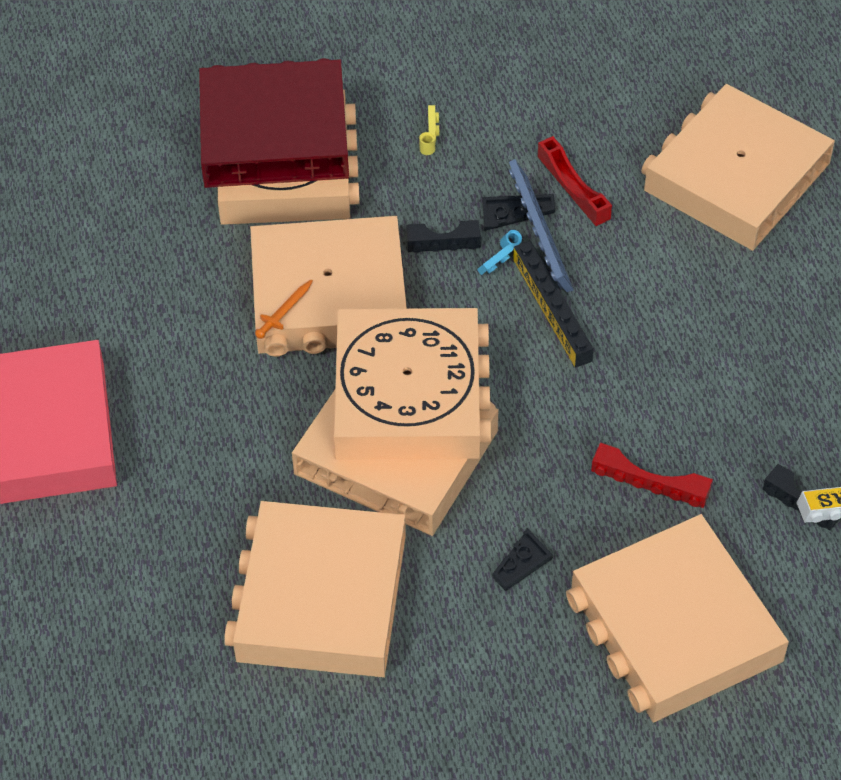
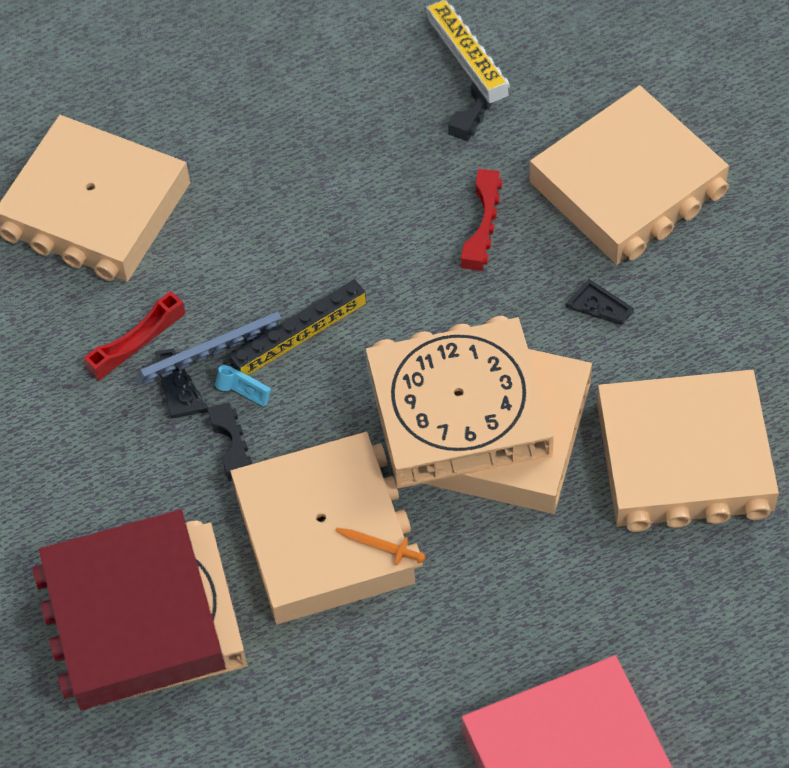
camera: 100 degrees left, 5 degrees up
(428, 139) = (81, 482): light yellow plate -> none

